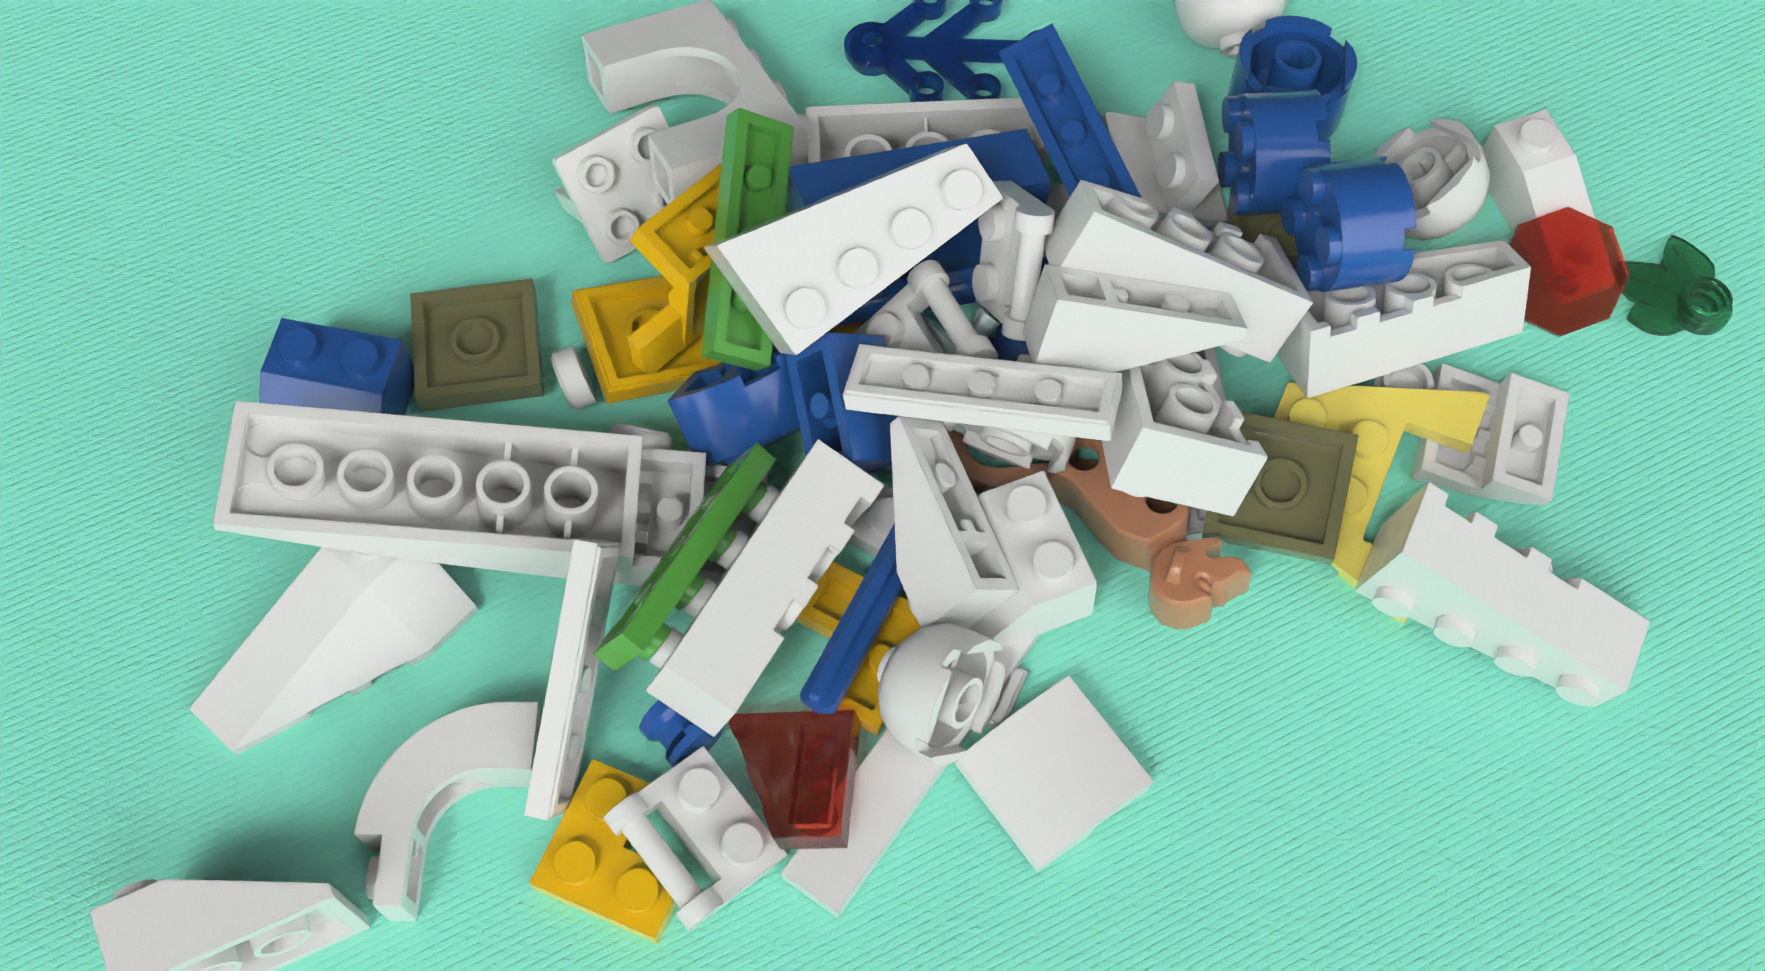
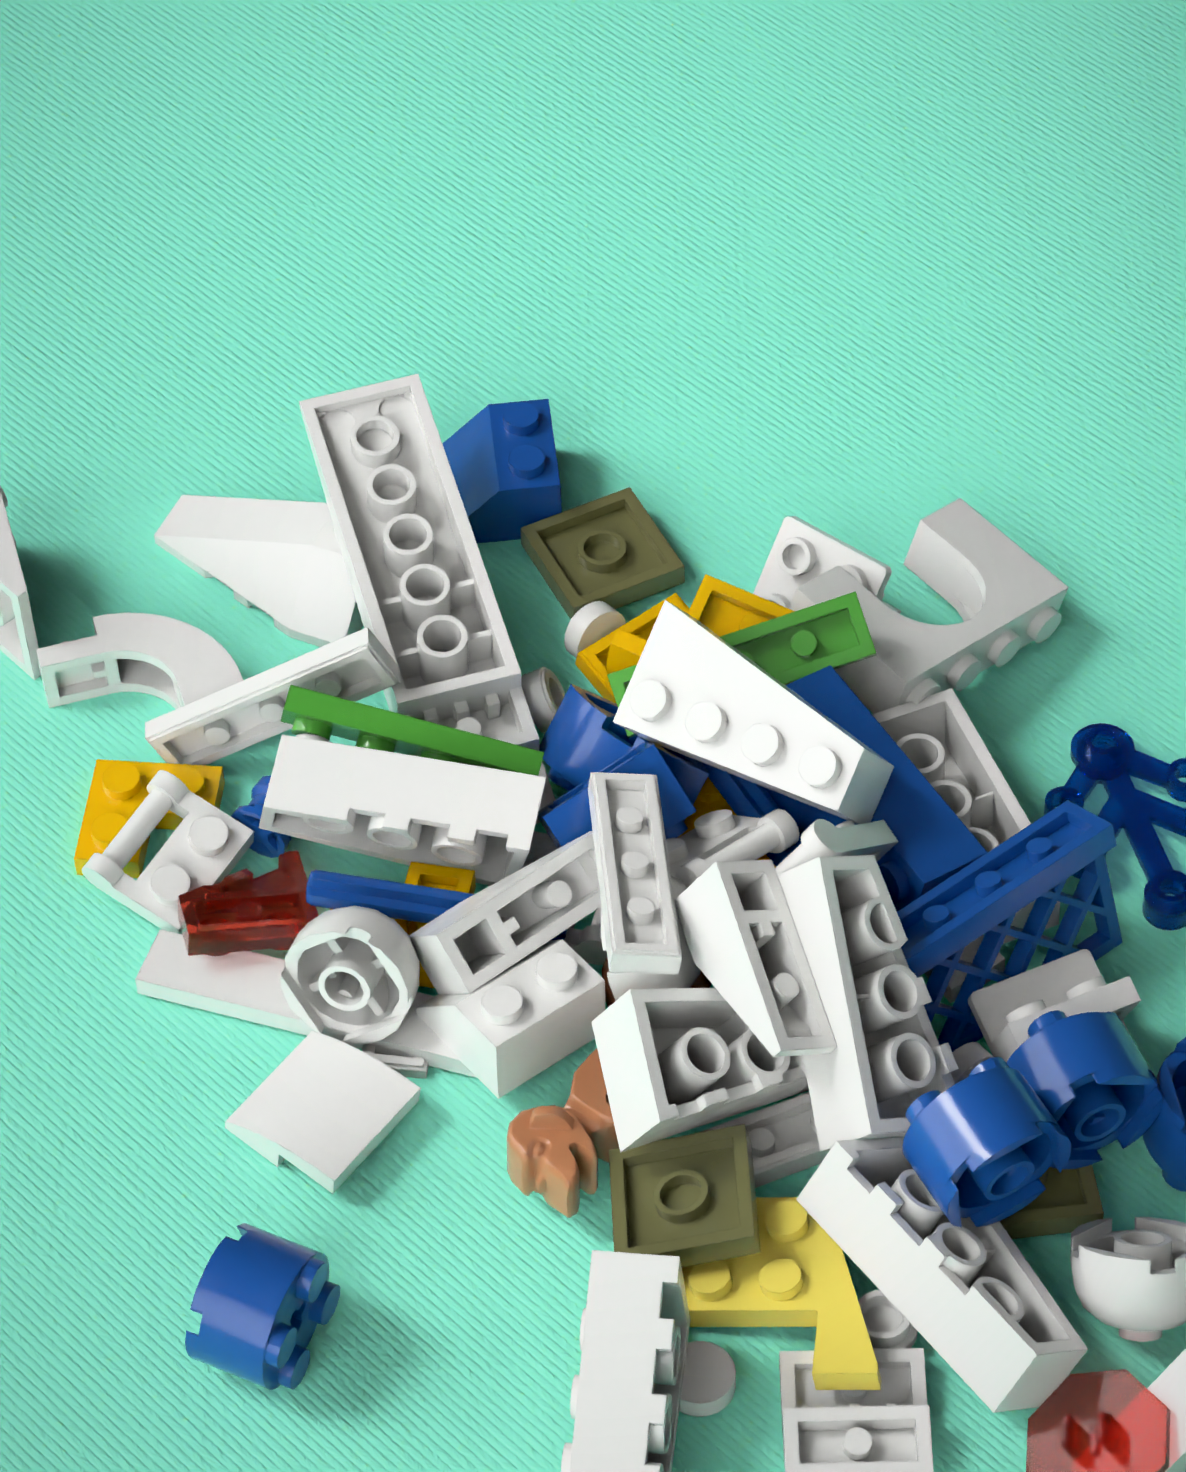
camera: 75 degrees right, 15 degrees down
(1306, 880) = (261, 1307): none -> blue brick

